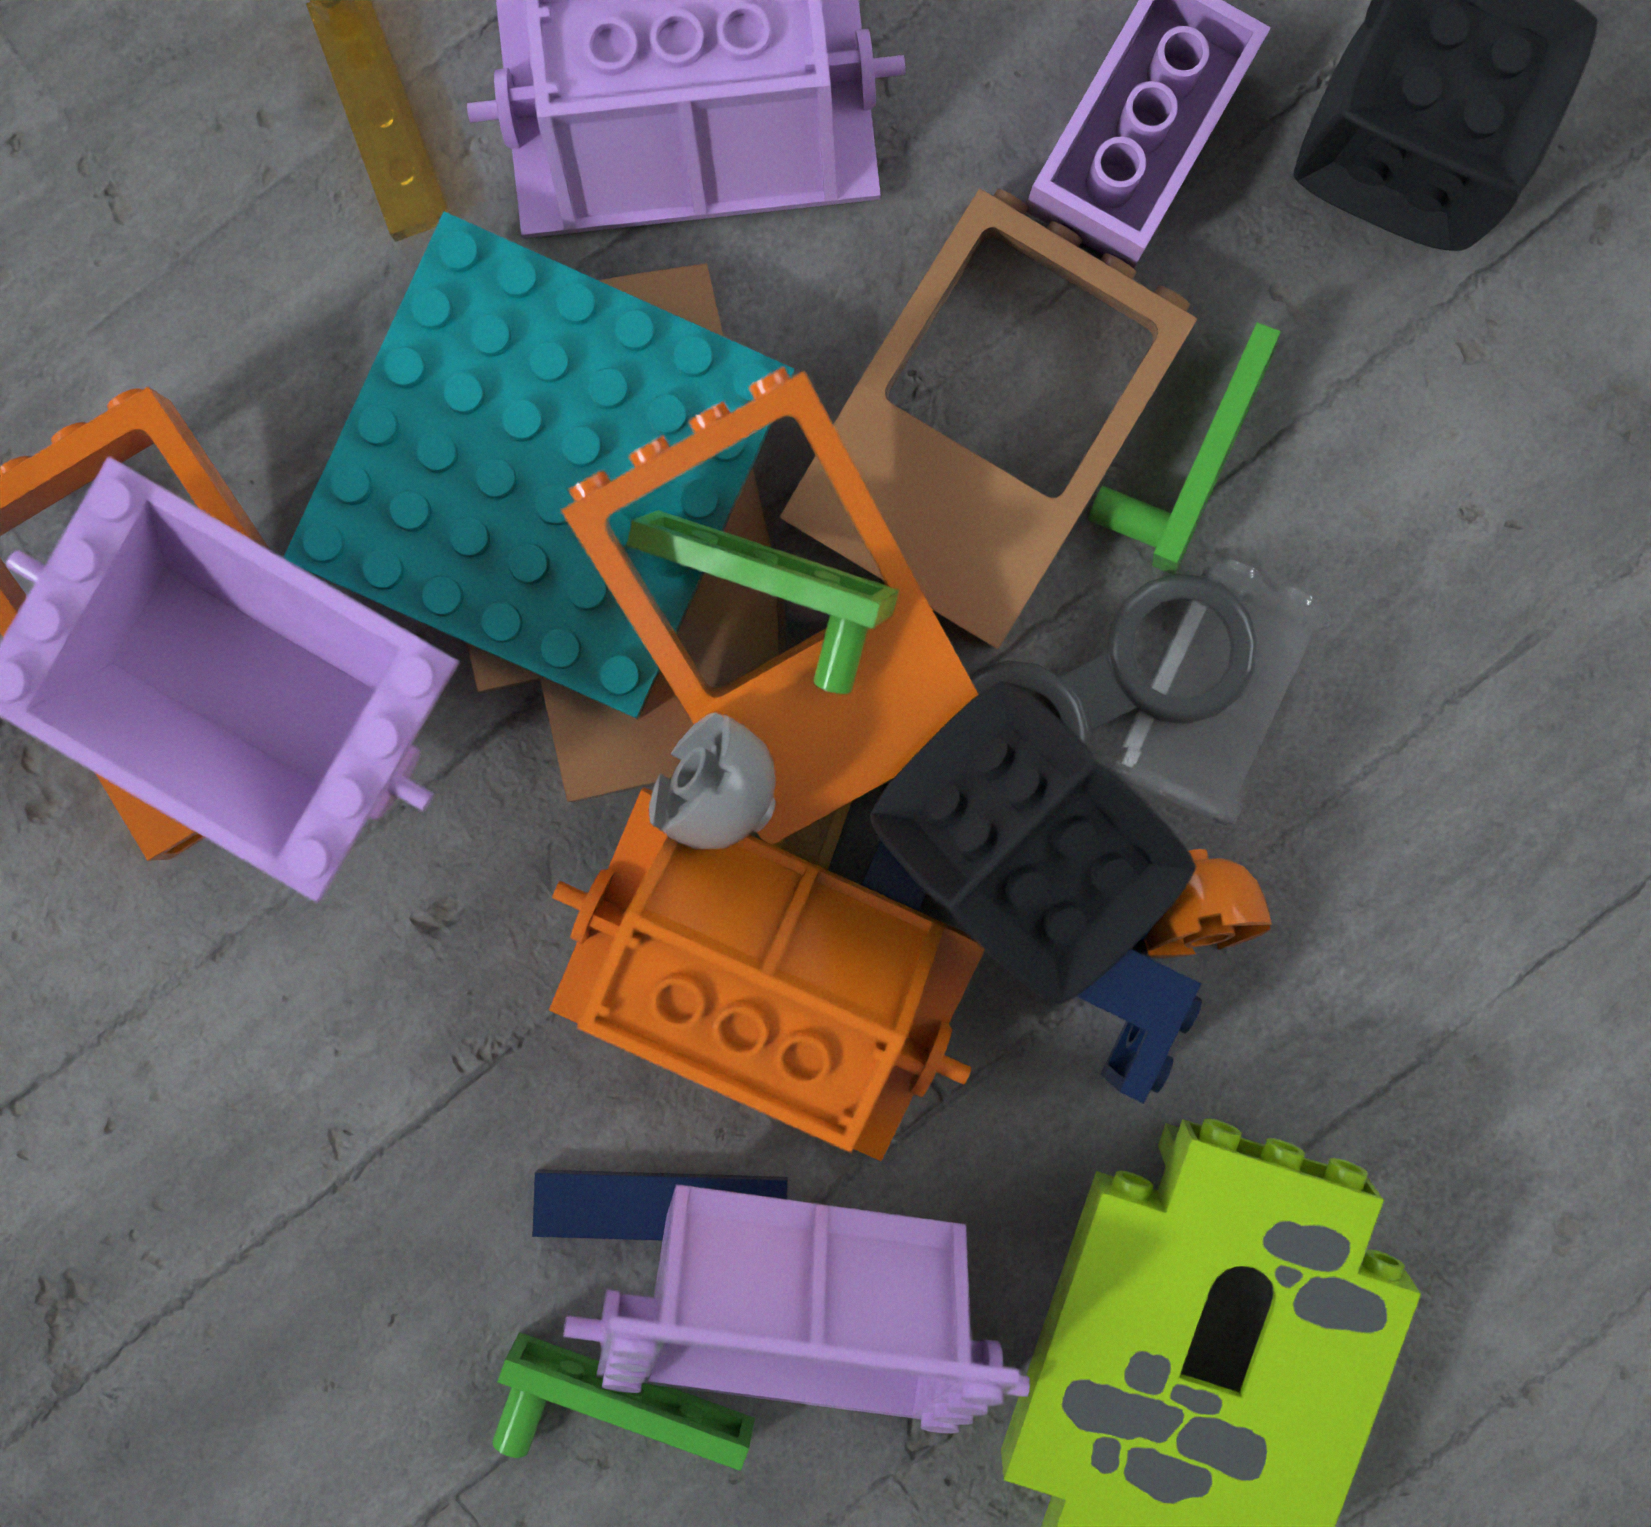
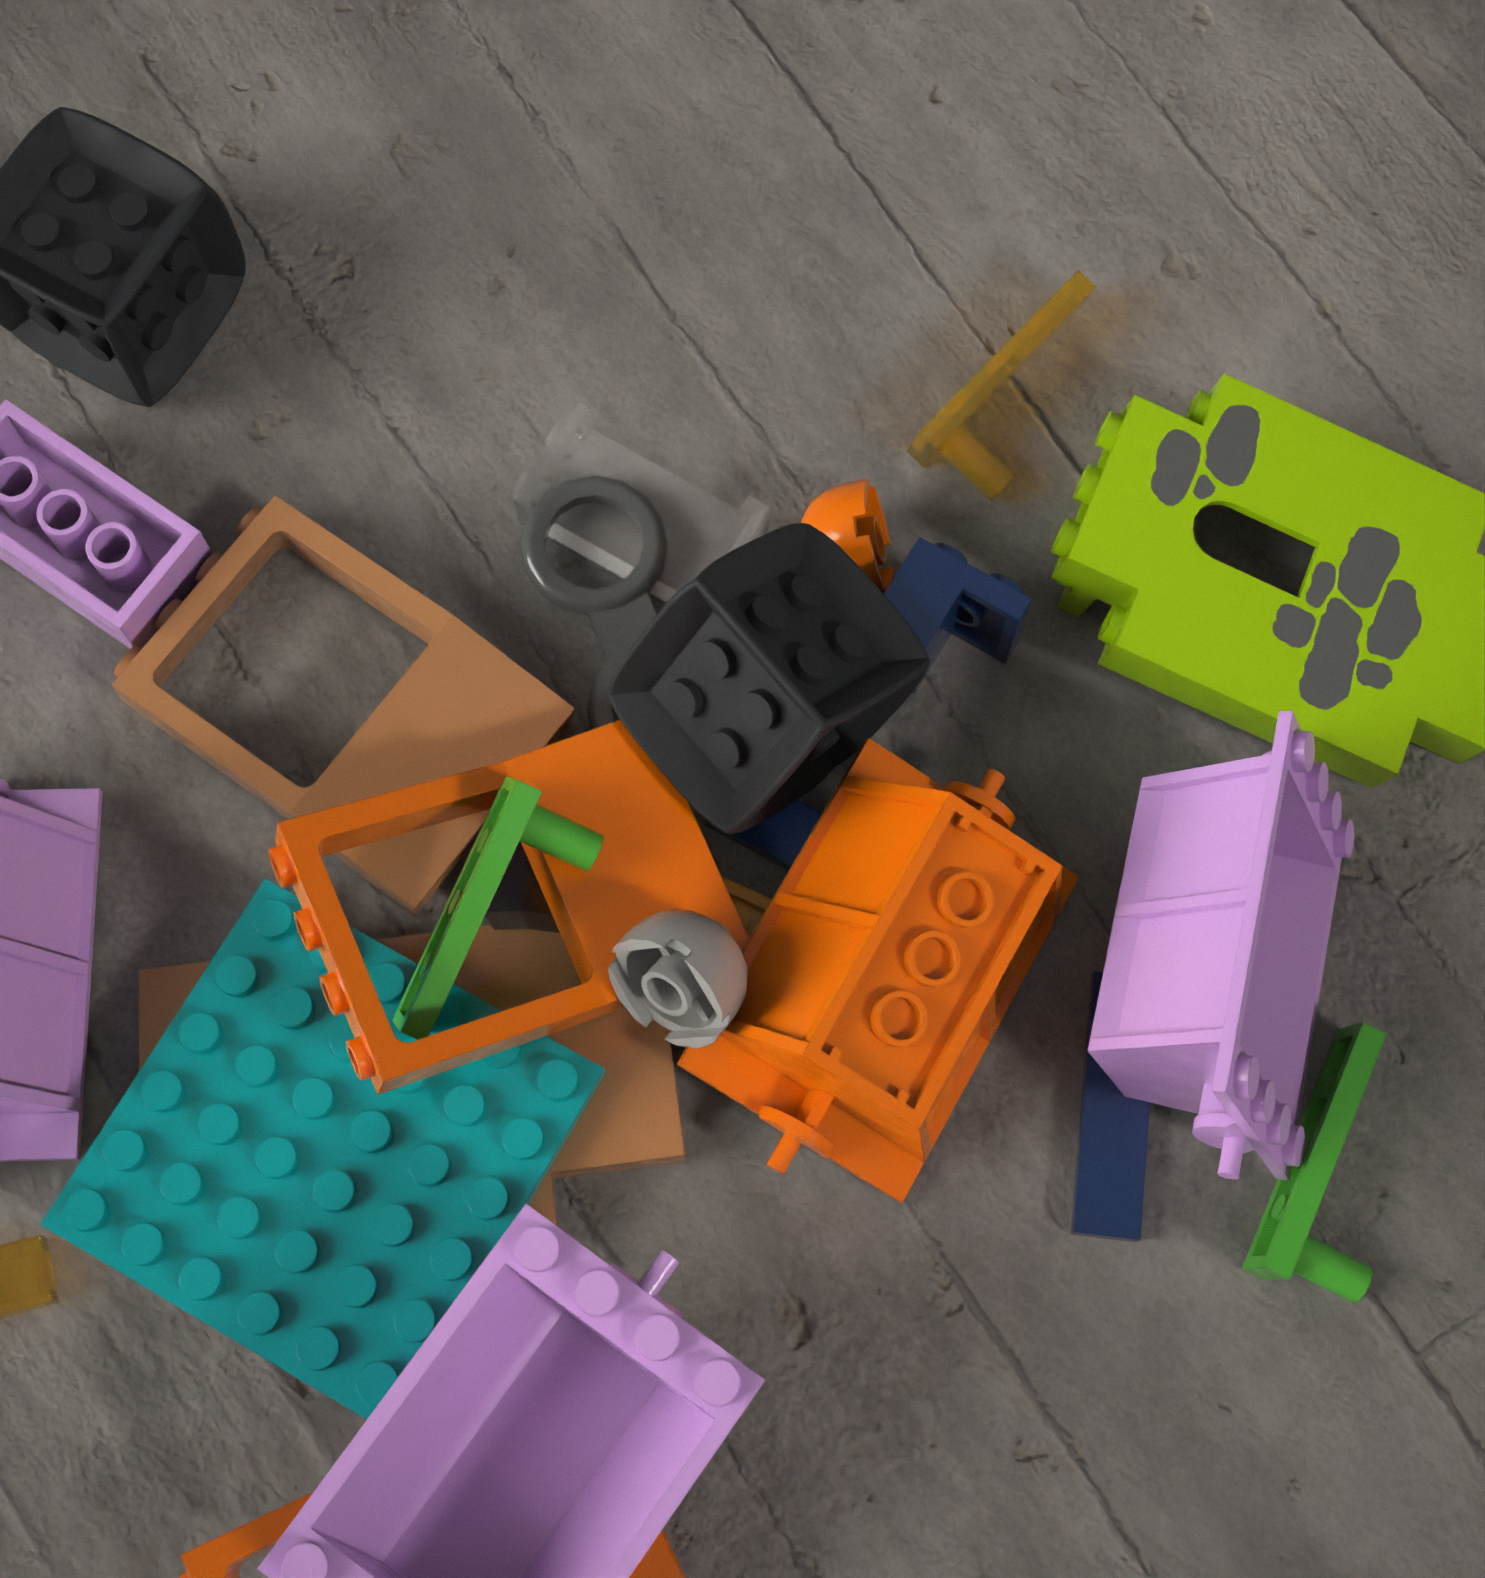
camera: 85 degrees left, 15 degrees down
(1173, 531) = (477, 539): bright green piece -> none
(1343, 999) = (947, 429): none -> clear yellow piece

